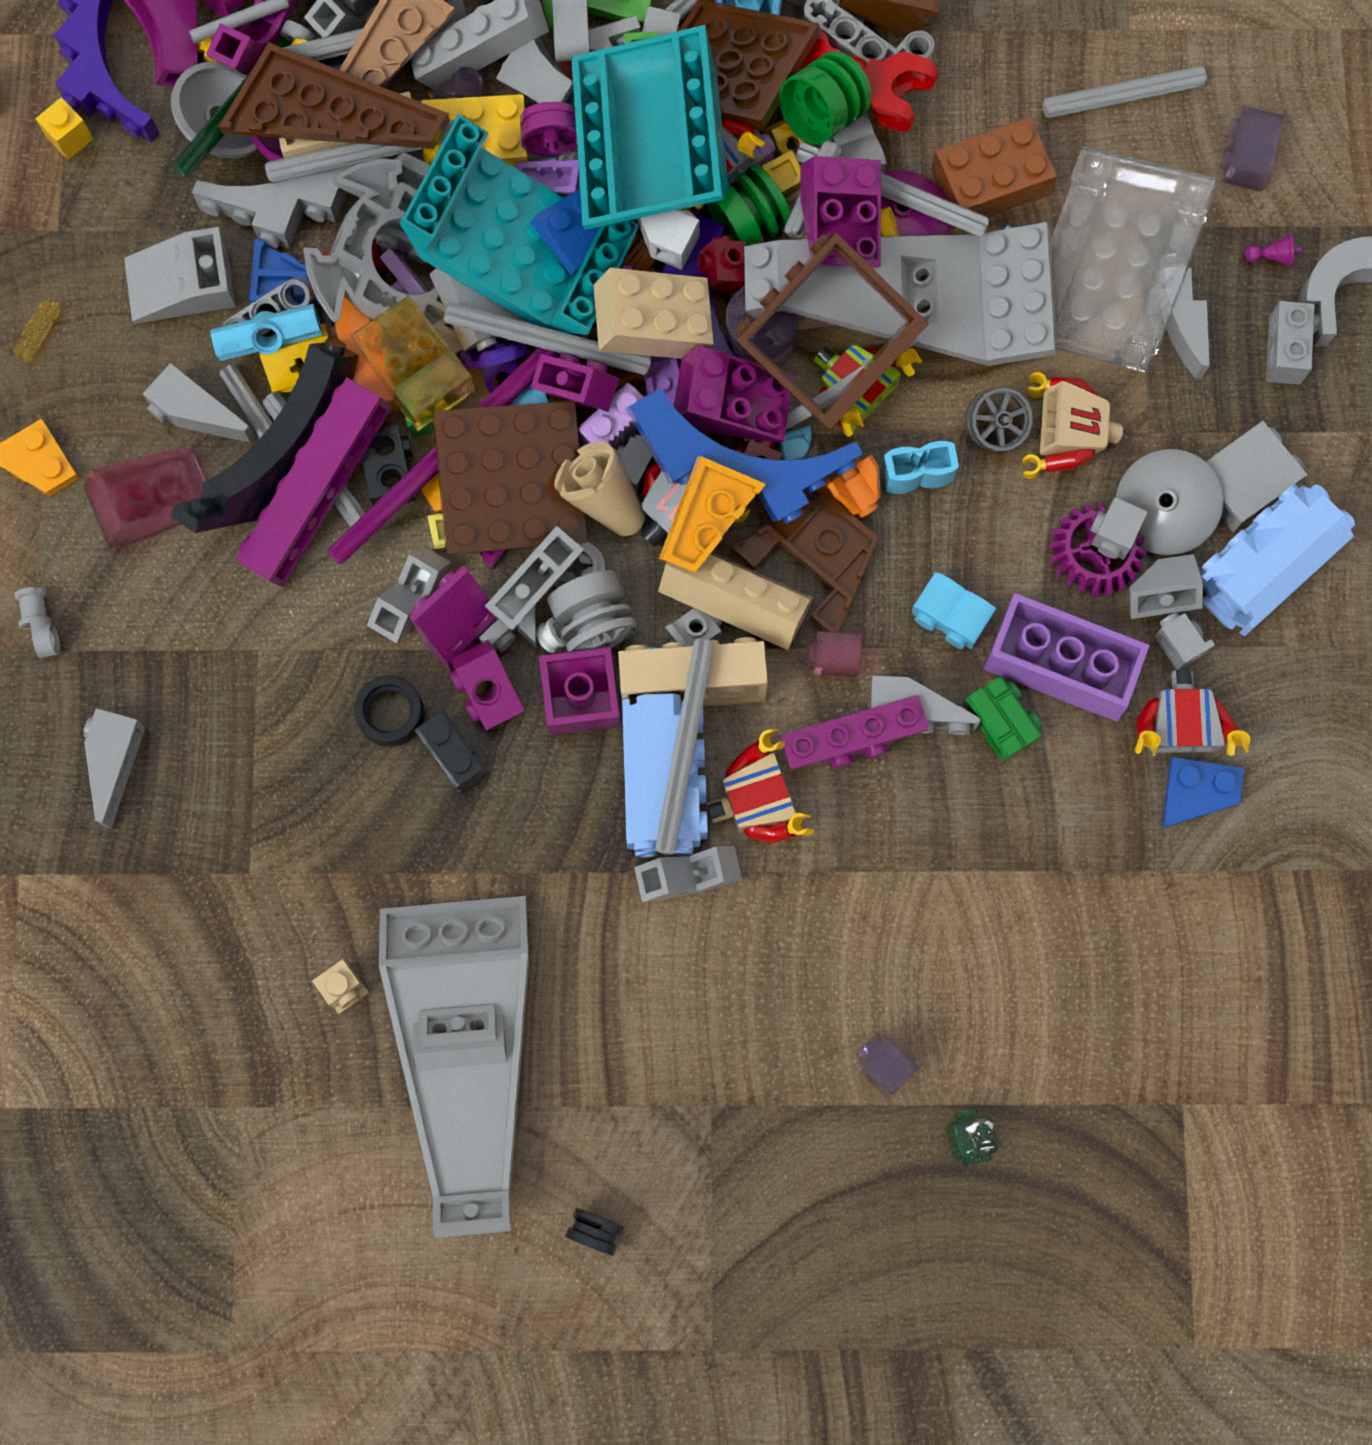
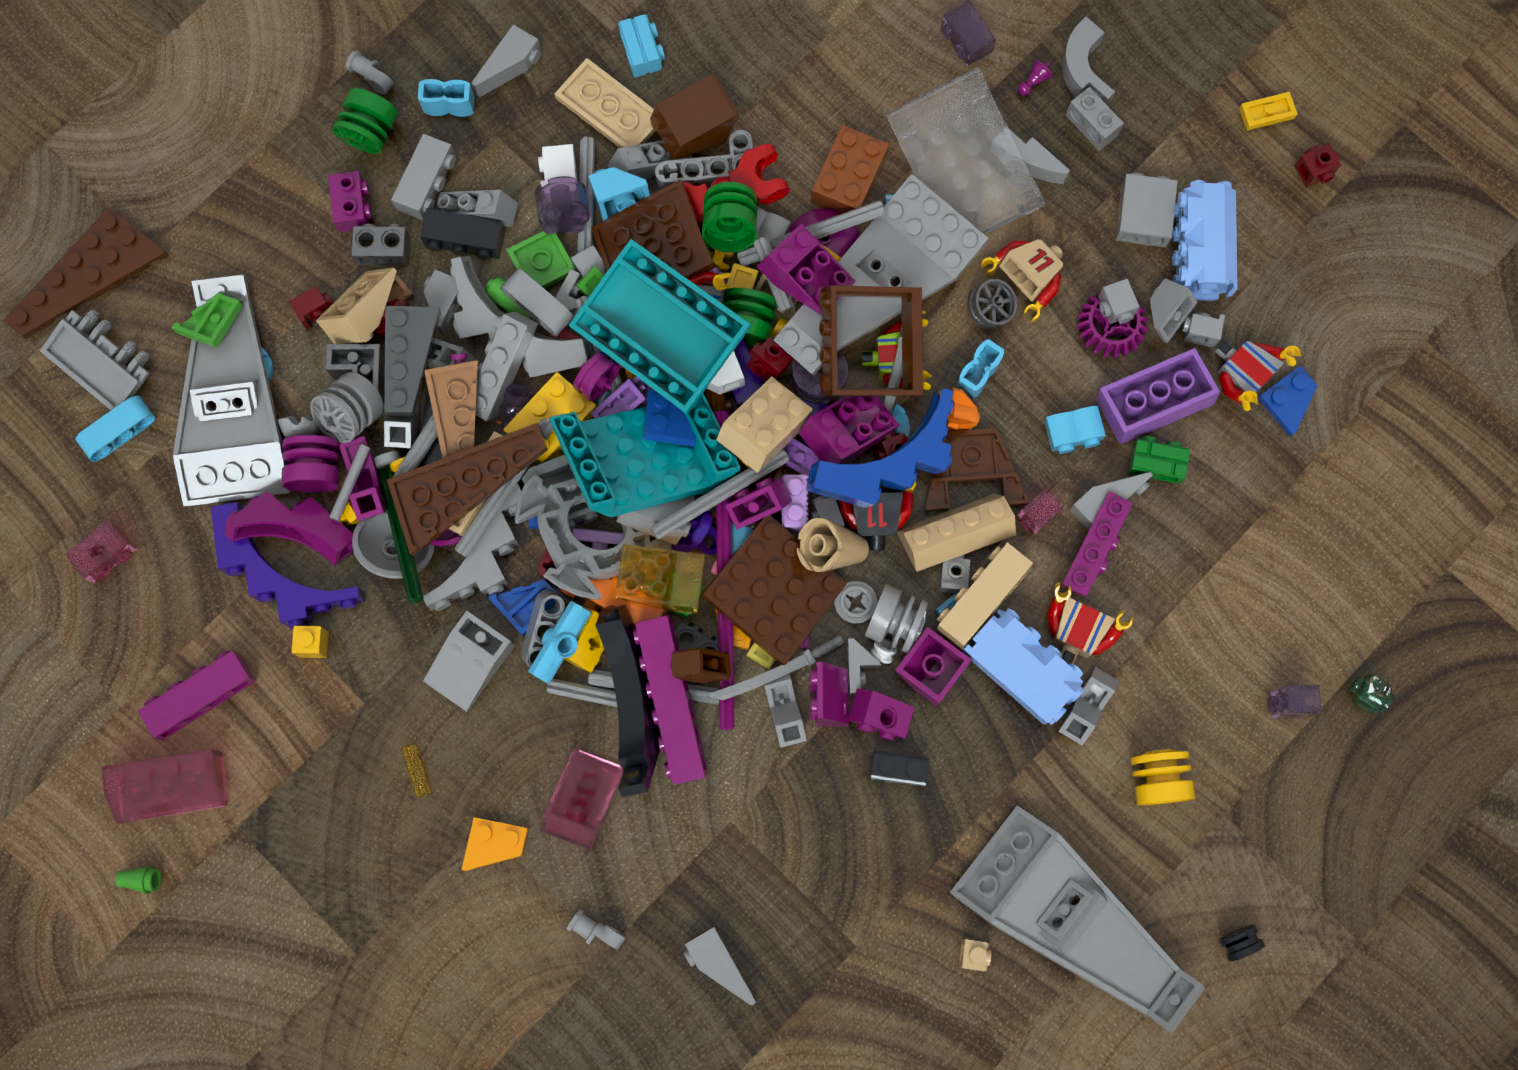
camera: 45 degrees left, 0 degrees up
(192, 408) = (550, 726): light grey slope -> none
(363, 472) = (701, 665): none -> reddish brown brick
(376, 687) = (860, 775): black tyre -> none
(424, 550) = (806, 659): none -> light grey sword
(534, 578) = (849, 629): light grey slope -> none
(682, 1005) = (1163, 777): none -> yellow wheel
(684, 746) = (1029, 640): light grey axle -> none
(706, 511) = (908, 501): light orange wing -> none
(1124, 91) = (869, 64): light grey axle -> none
(1195, 504) = (1111, 246): light grey dish -> none

